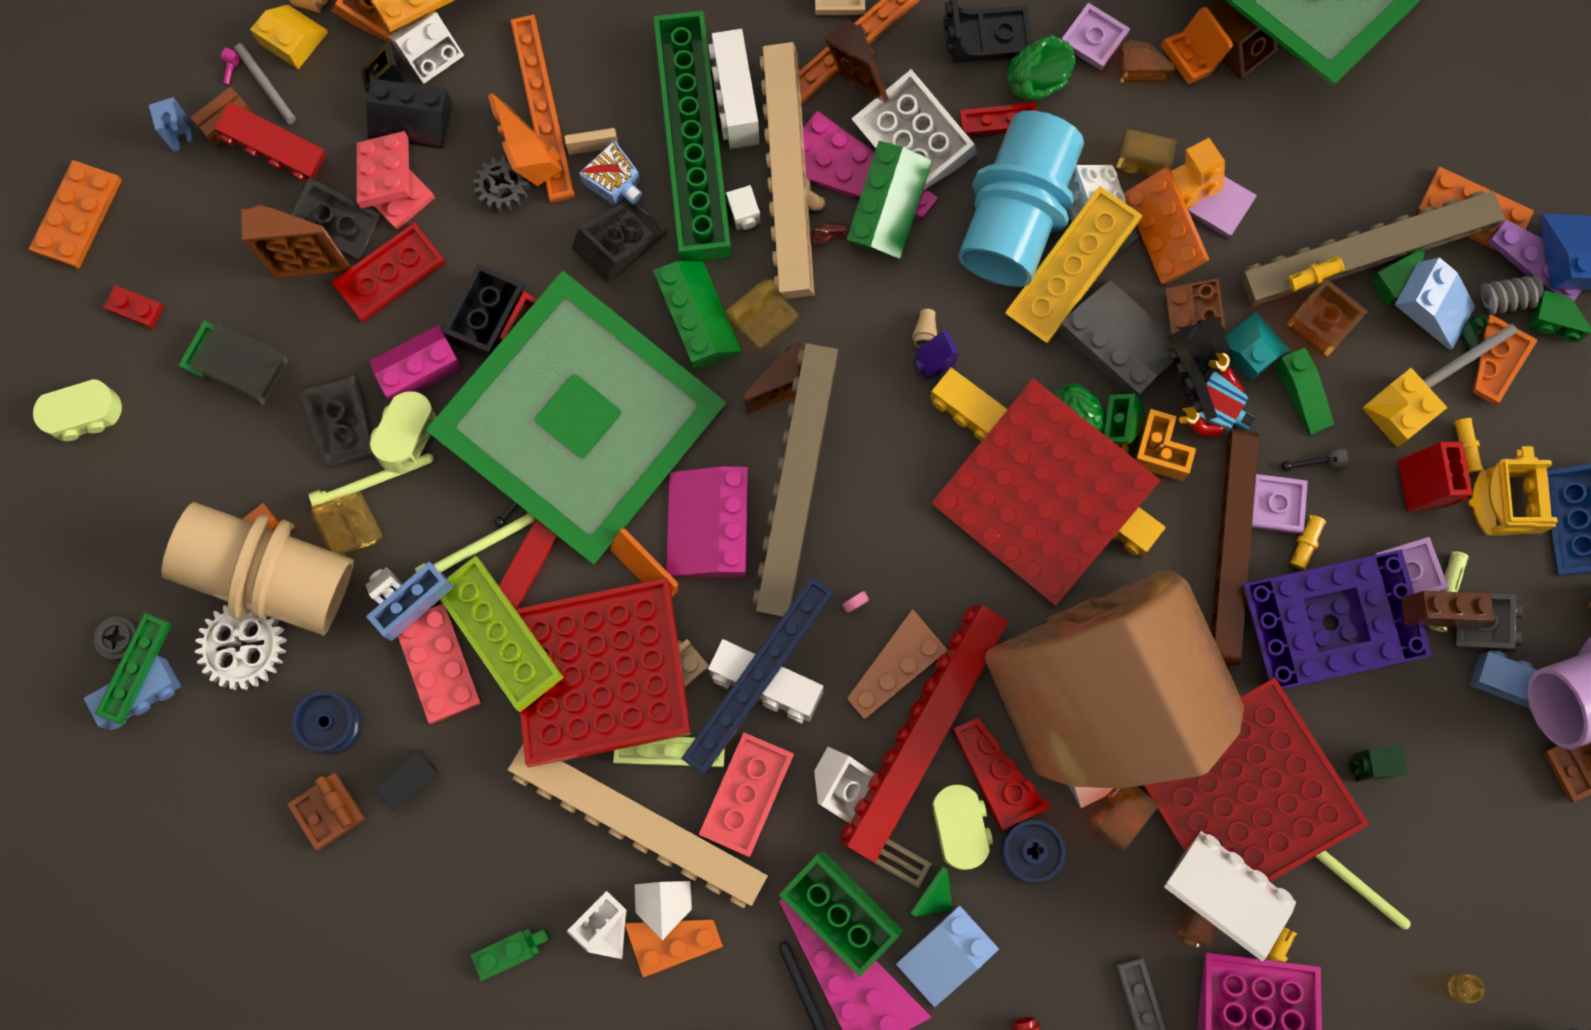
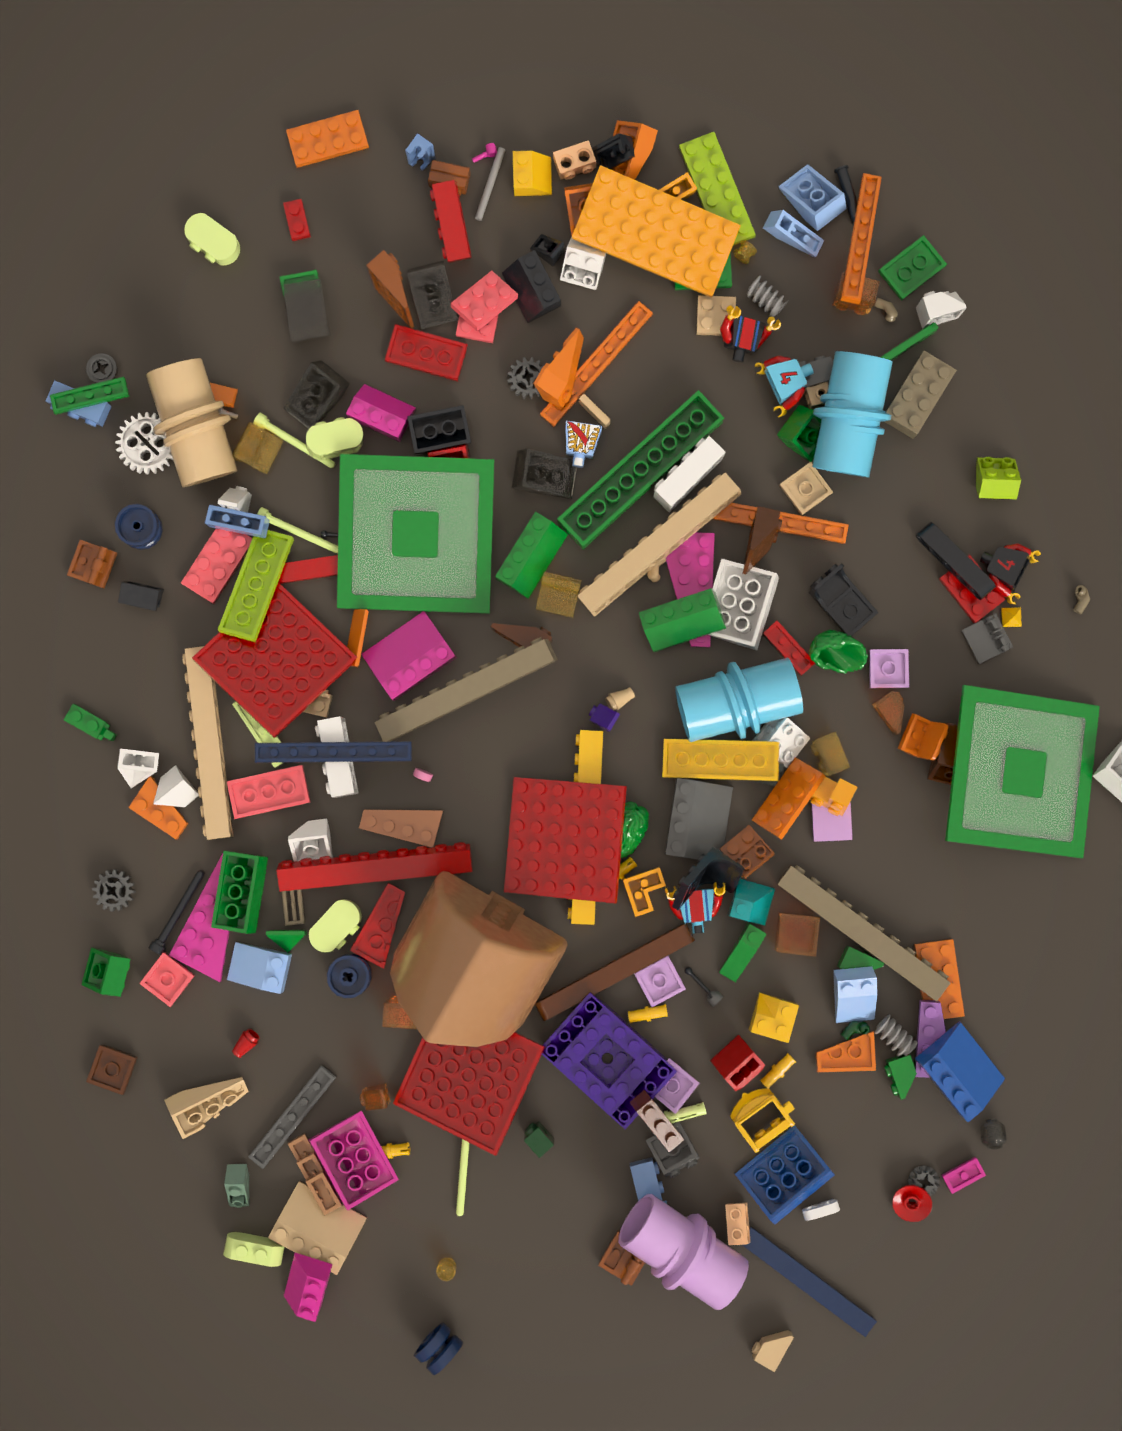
camera: 55 degrees right, 10 degrees up
(743, 208) = (617, 534): white brick -> none
(826, 231) = (639, 594): clear red arm -> none
(1124, 418) = (642, 856): green slope -> none
(1231, 895) = (397, 1102): white slope -> none
(1316, 273) = (817, 909): yellow pin -> none
(1471, 355) = (834, 1035): light grey bar -> none

